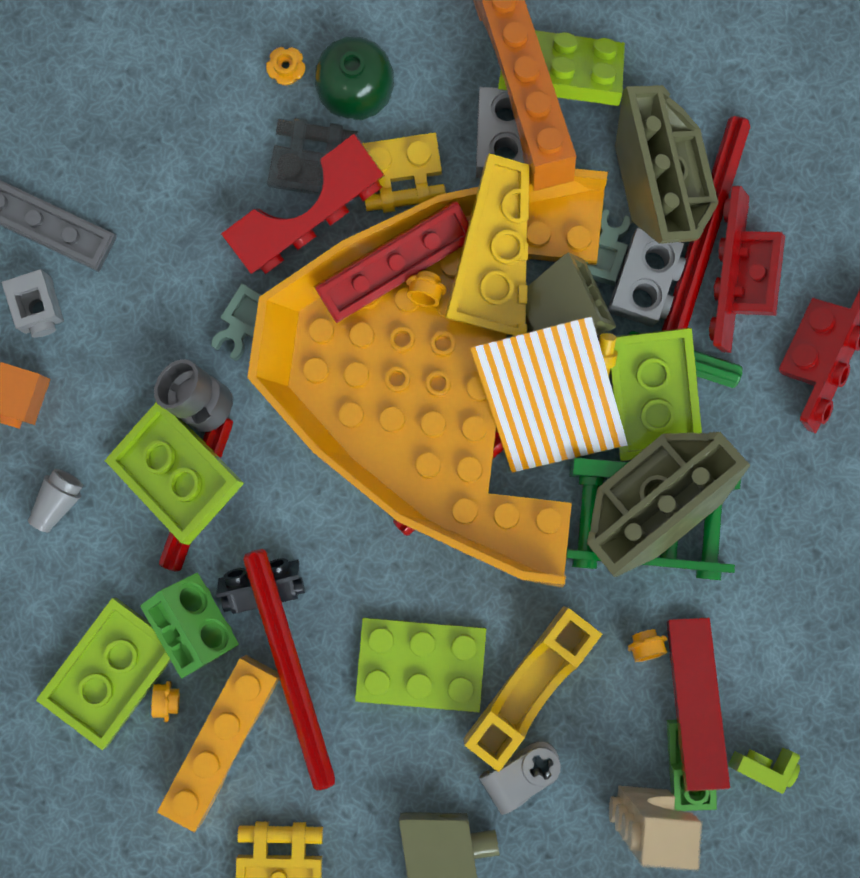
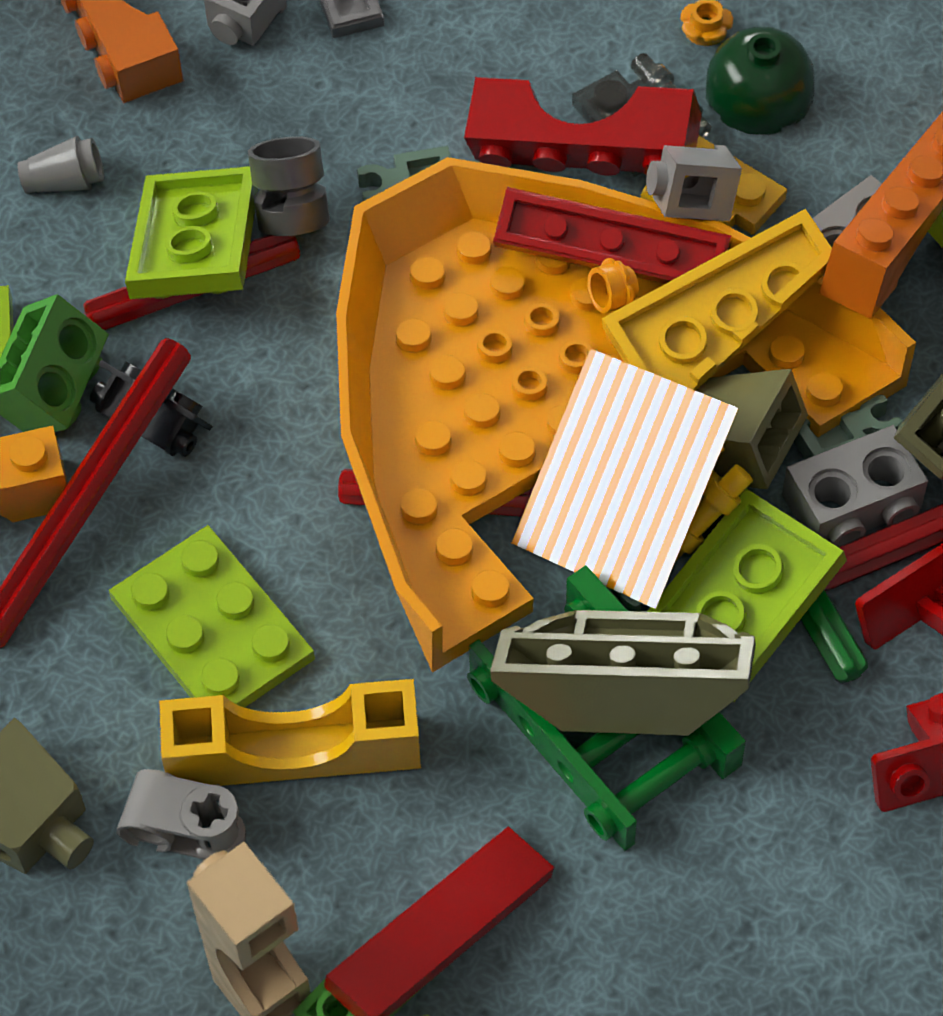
camera: 50 degrees right, 25 degrees down
(407, 187) = (707, 190): none -> light grey brick
(647, 645) = (456, 821): light orange plate -> none

